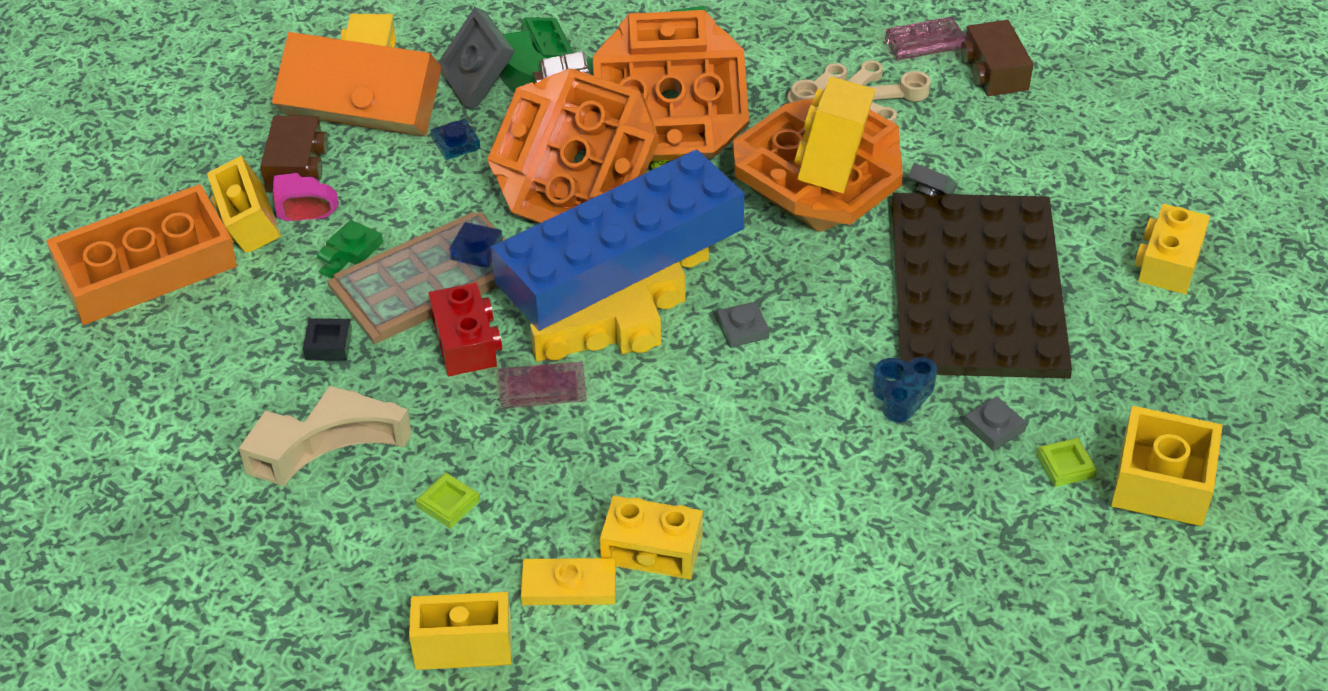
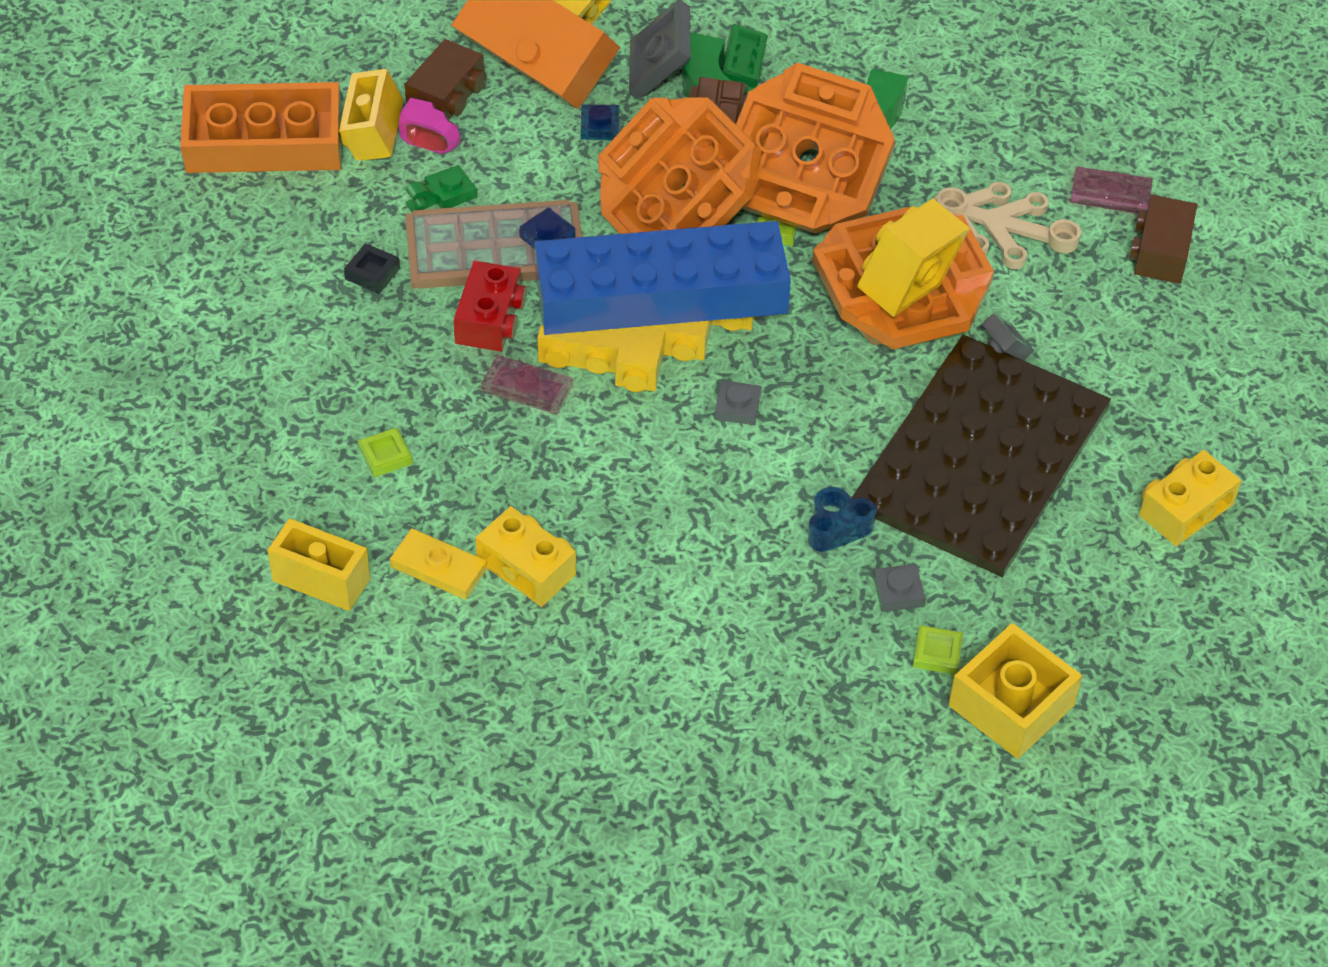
camera: 25 degrees right, 5 degrees up
(341, 418) = (338, 344): tan arch -> none

